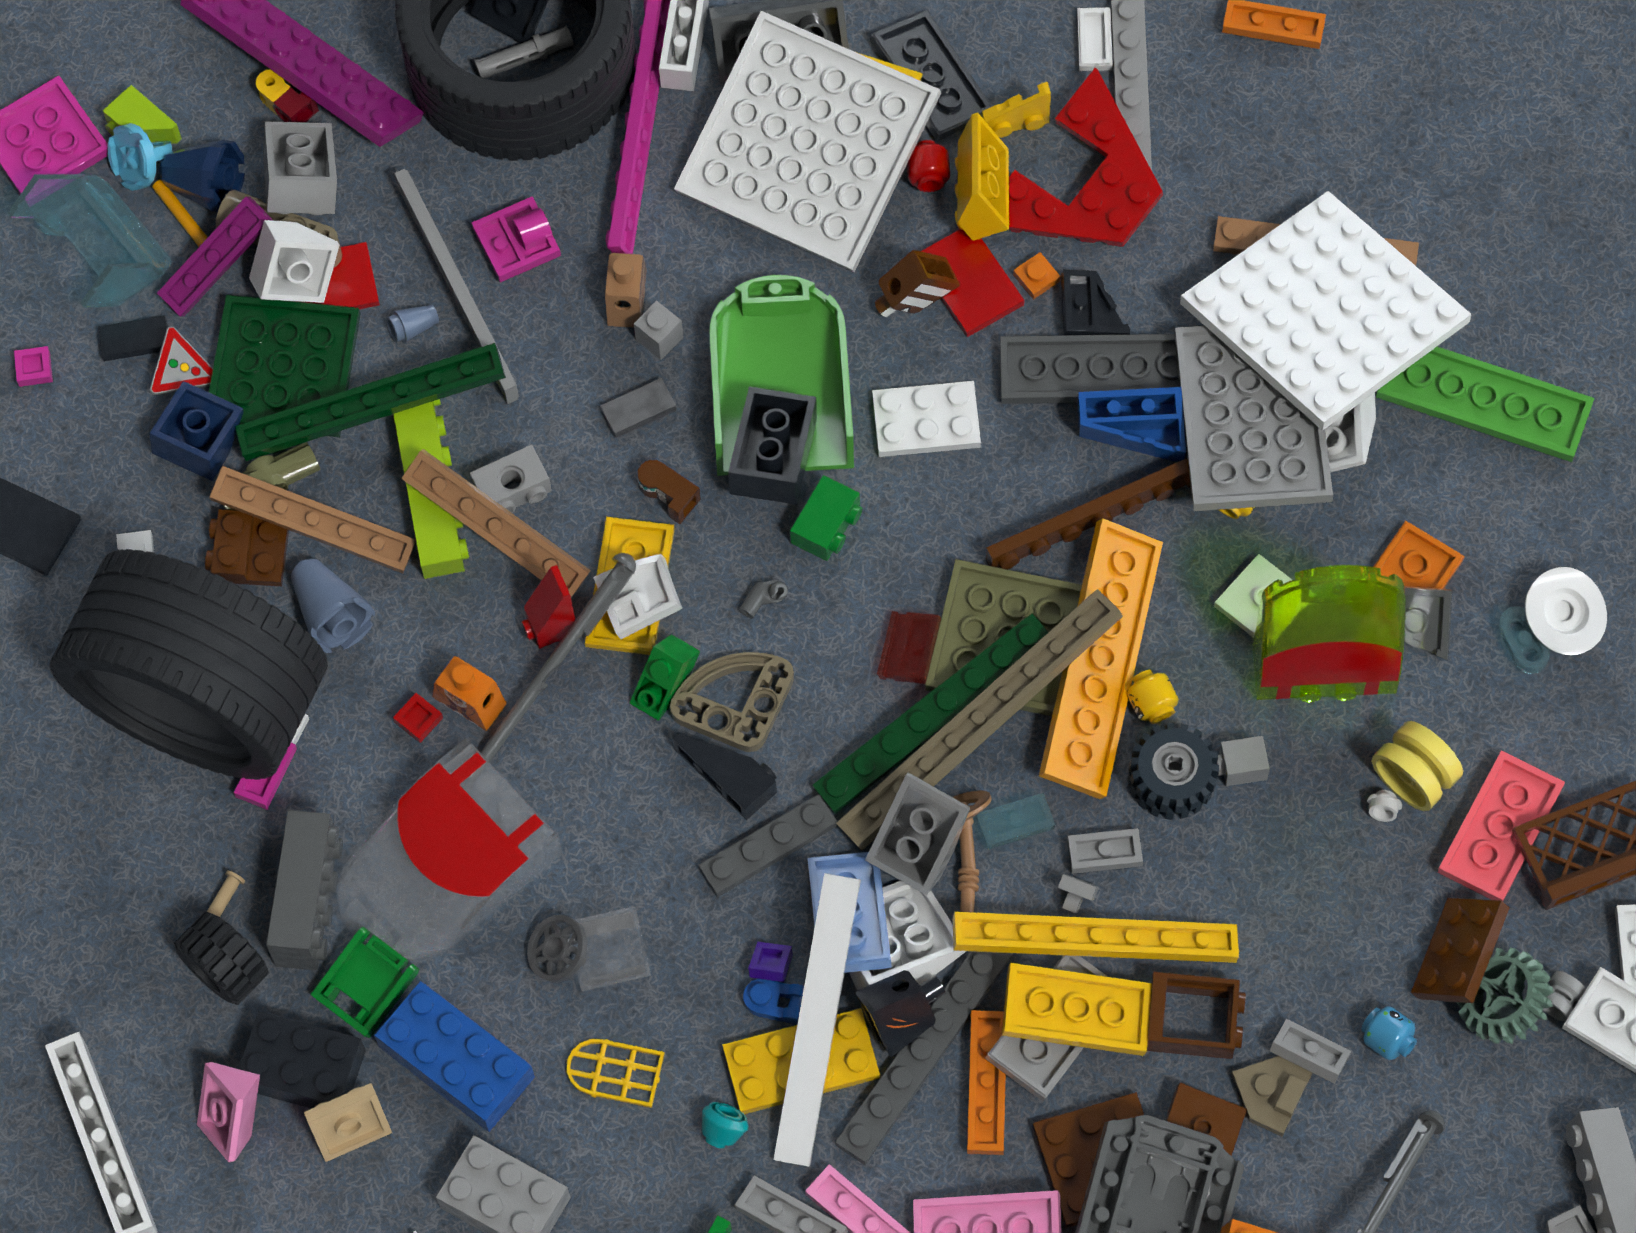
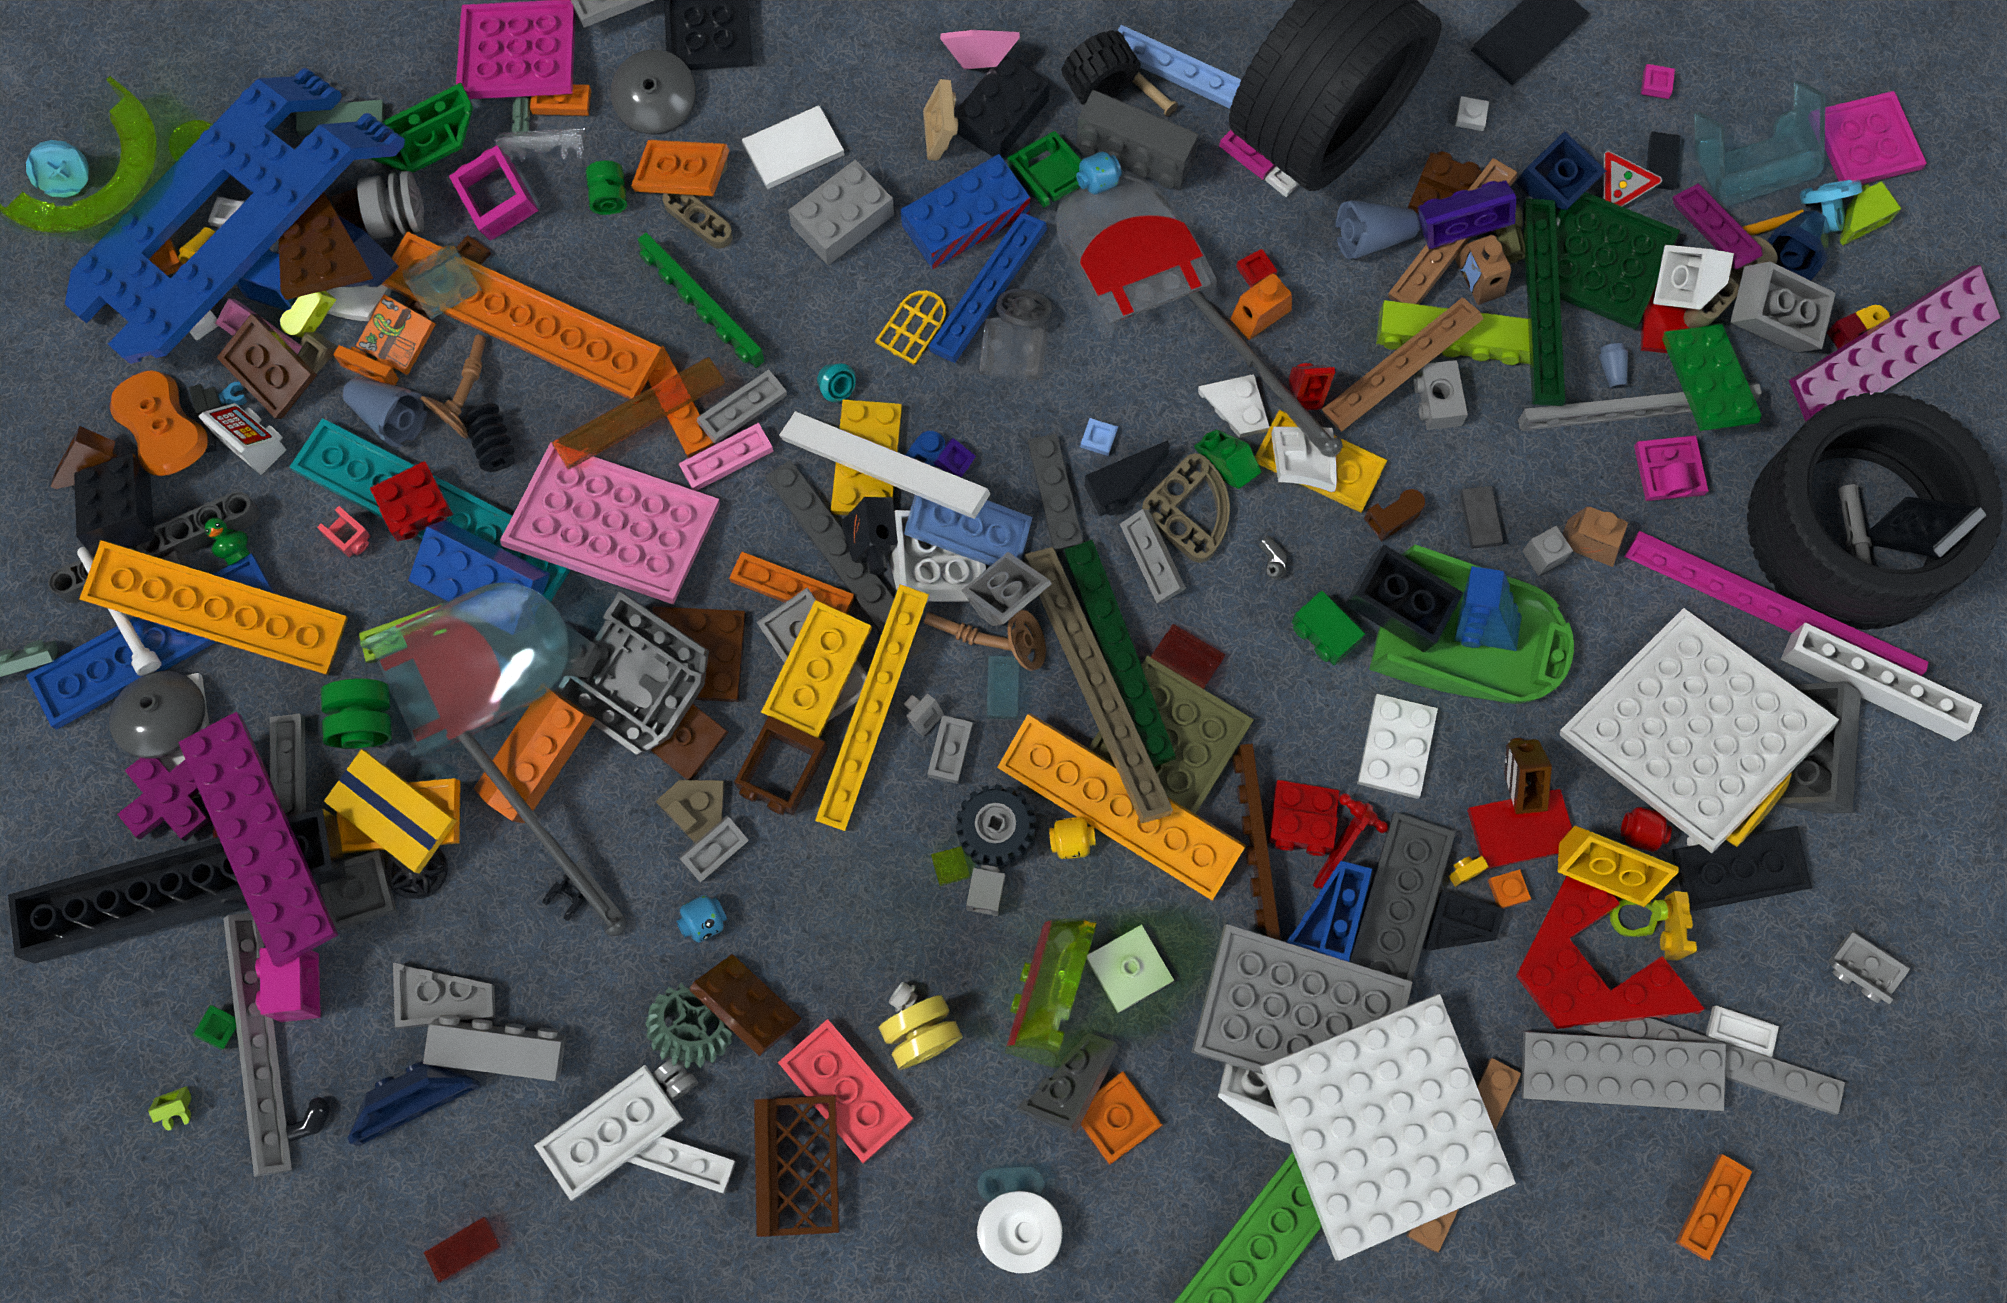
camera: 105 degrees right, 5 degrees up
(181, 868) = (1182, 68): none -> light blue plate
(294, 500) = (1467, 213): none -> dark purple slope
(341, 477) = (1484, 263): none -> medium nougat torso
(364, 913) = (1099, 173): none -> dark azure head
(403, 219) = (1711, 377): none -> green plate
(542, 999) = (987, 287): none -> blue plate
(591, 688) = (1238, 404): none -> white wing
(683, 822) = (1099, 436): none -> light blue tile
(768, 356) = (1488, 611): none -> blue wedge
(808, 717) = (1152, 556): none -> light grey plate
(1011, 131) = (1659, 913): none -> lime piece
(1035, 315) = (1467, 869): none -> yellow plate
(1039, 483) = (1303, 818): none -> red plate
(1048, 435) = (1363, 816): none -> red piece
(1179, 128) = (1623, 1070): none -> light grey plate
(1228, 809) = (950, 866): none -> clear neon green tile
(1416, 1197) = (559, 888): none -> black piece

